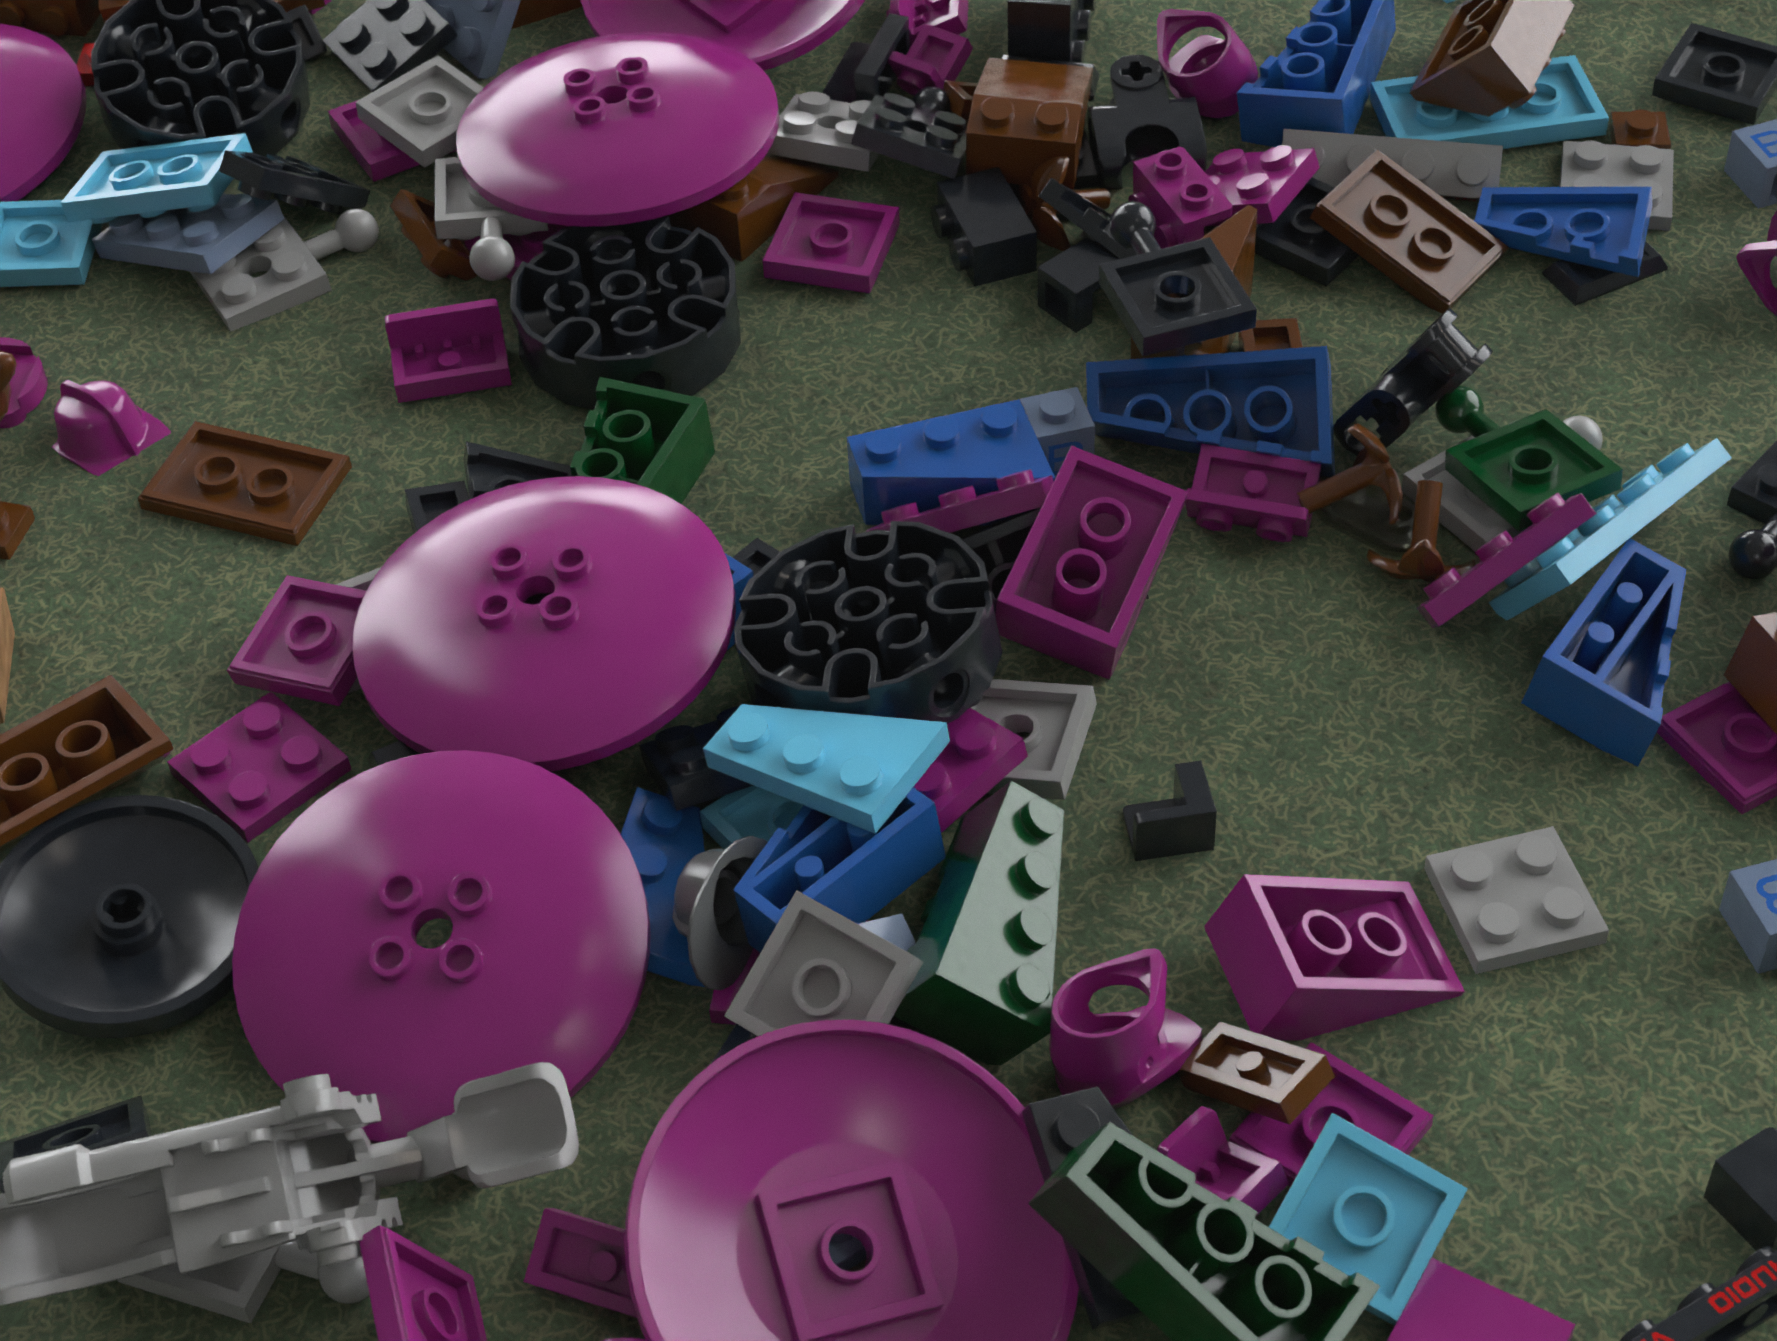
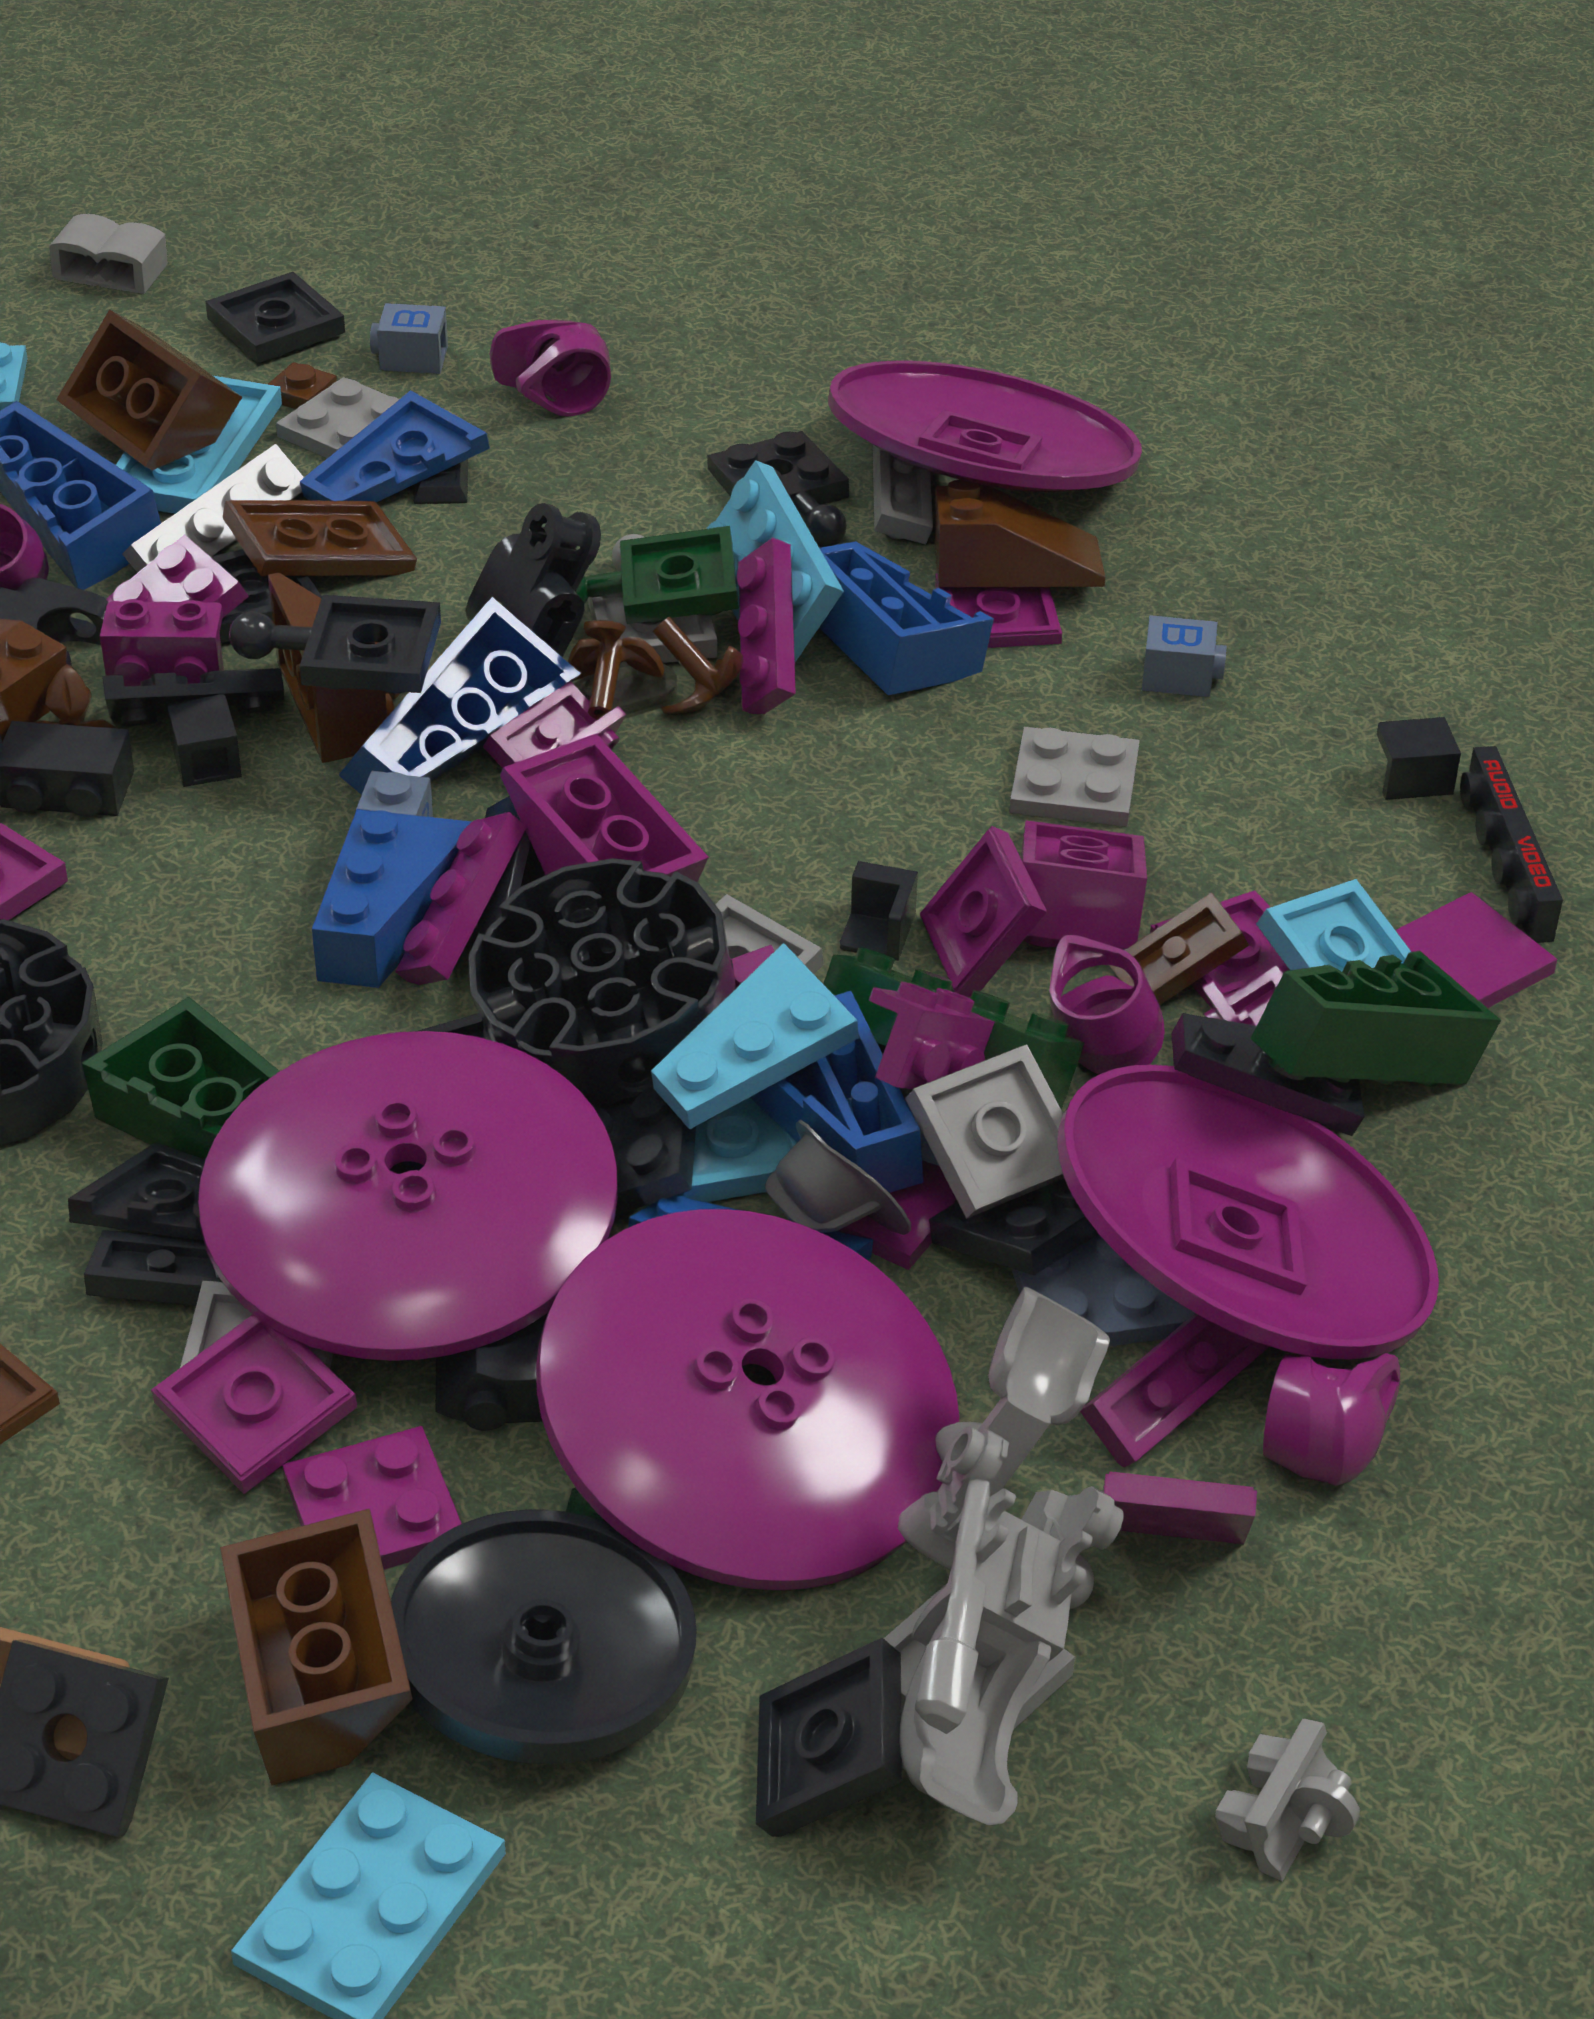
camera: 70 degrees left, 5 degrees down
(886, 878) = (930, 1035): none -> magenta bracket
(1194, 882) = (982, 912): none -> magenta tile

